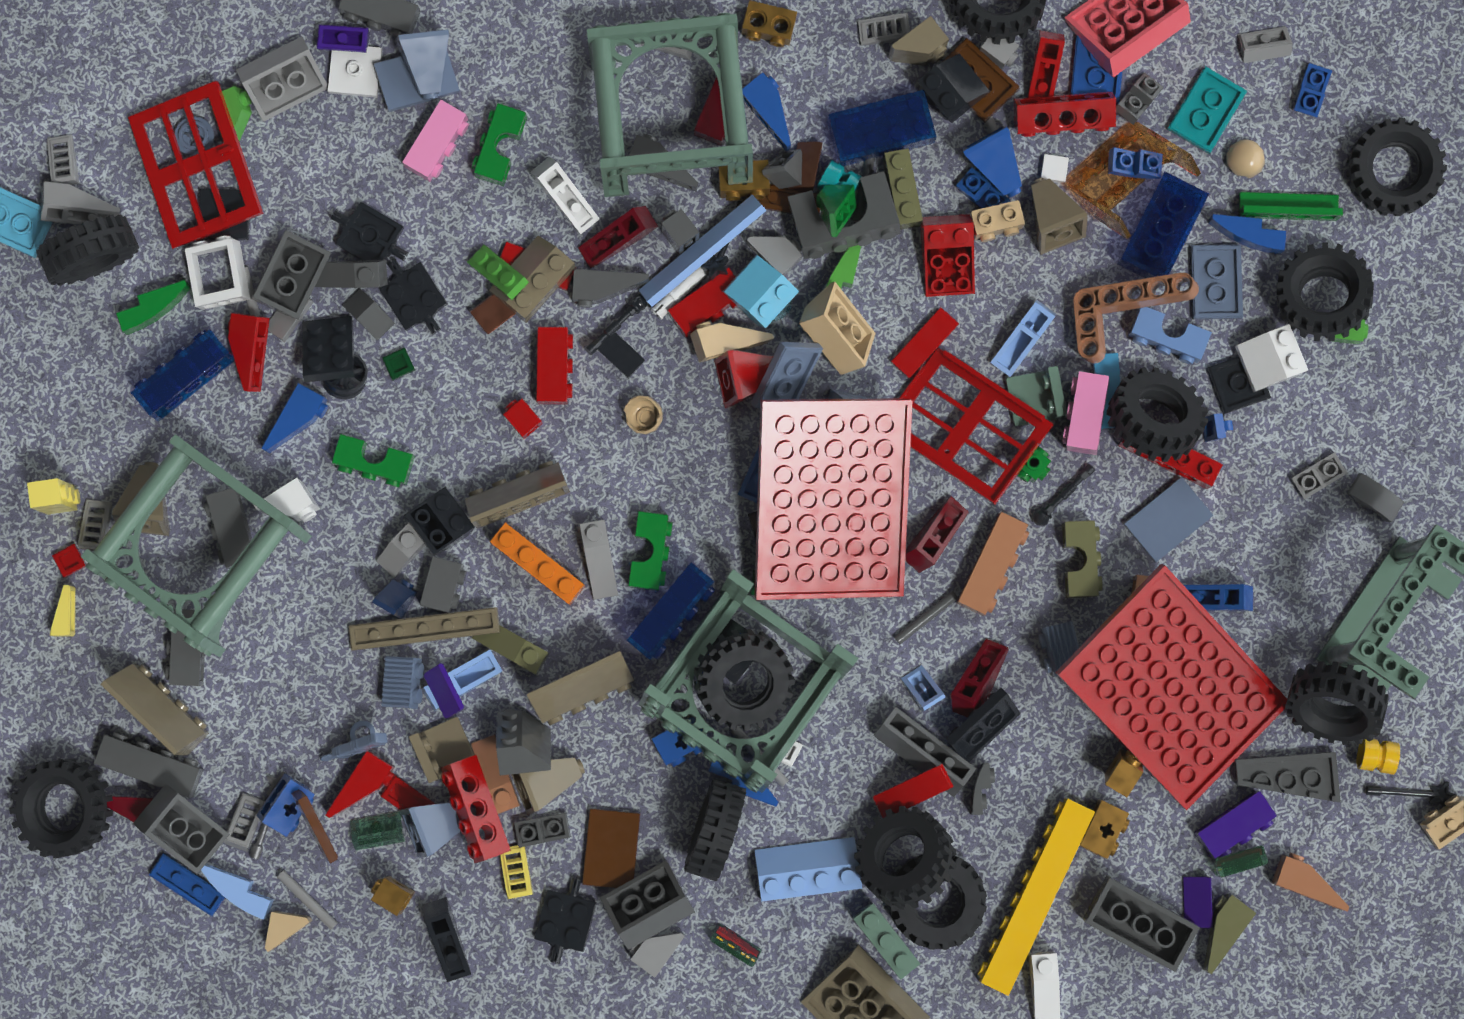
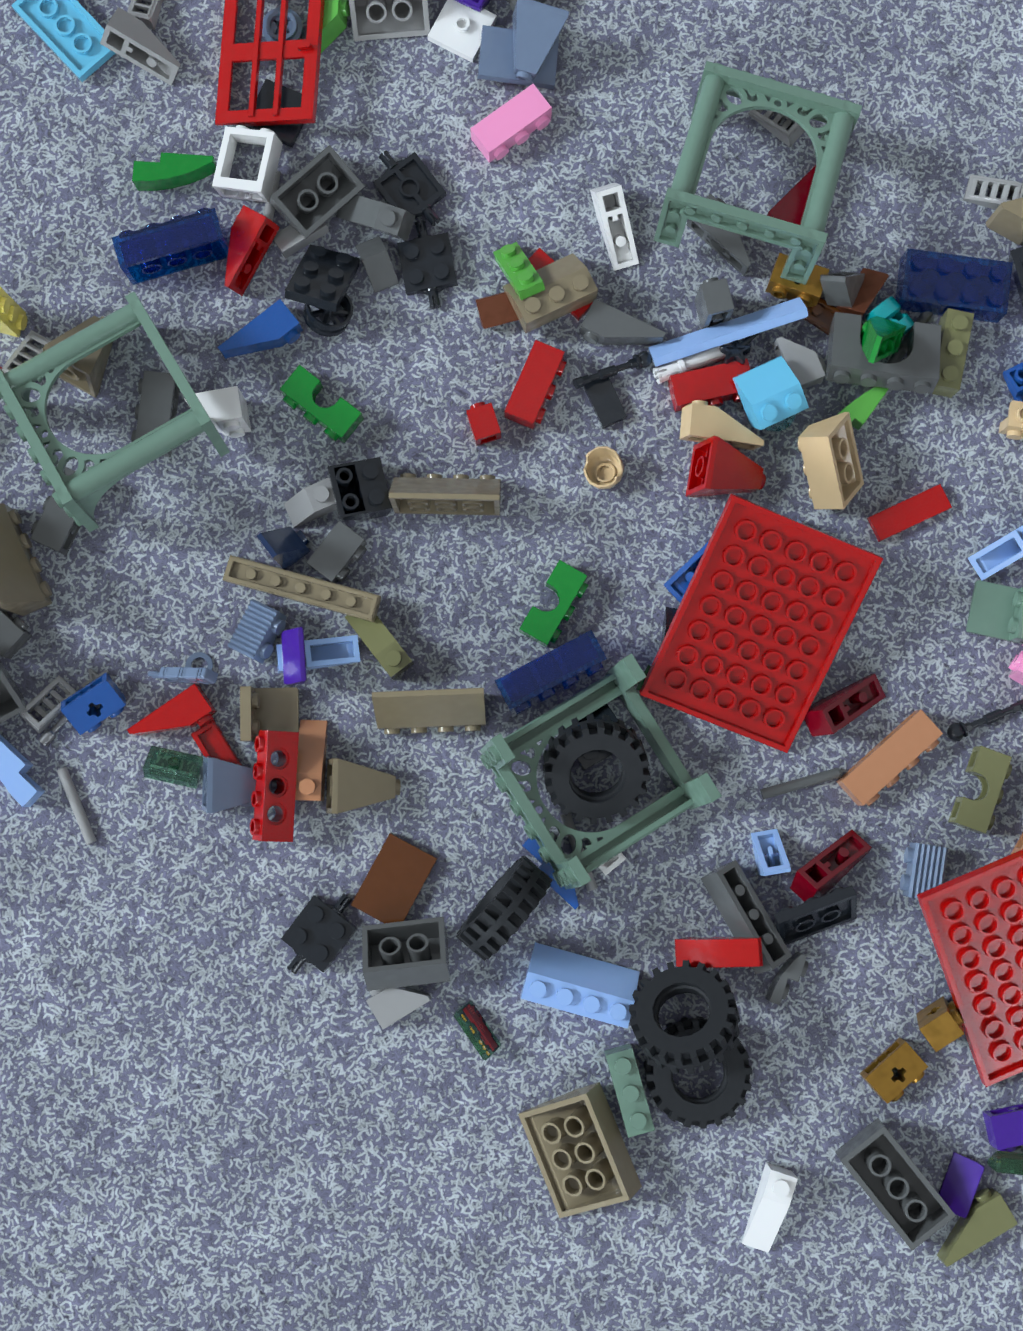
camera: 30 degrees right, 0 degrees up
(87, 249) = (129, 84): black tyre -> none
(283, 926) = (39, 822): tan slope -> none
(315, 826) = (111, 736): reddish brown tile -> none
(391, 895) = (157, 836): pearl gold brick -> none
(398, 364) = (385, 323): dark green tile -> none
(446, 939) = (194, 901): black slope -> none
(504, 123) = (584, 134): green arch -> none
(522, 743) = (348, 740): dark grey slope -> none
(525, 869) = (287, 887): light yellow slope -> none
(537, 564) = (438, 570): orange brick -> none
(542, 830) = (334, 834): dark grey slope -> none
(599, 559) = (500, 591): light grey slope -> none
(618, 236) = (651, 285): dark red slope -> none
(669, 752) = (490, 807): blue brick -> none
(765, 102) = (848, 221): blue slope -> none
(771, 17) = (887, 135): pearl gold brick -> none
(788, 372) = (767, 479): sand blue tile -> none
(948, 255) = (968, 436): red slope -> none
(969, 421) = (956, 587): red door -> none
(1033, 473) = (962, 680): green brick -> none
(1036, 896) = (798, 1109): yellow brick -> none

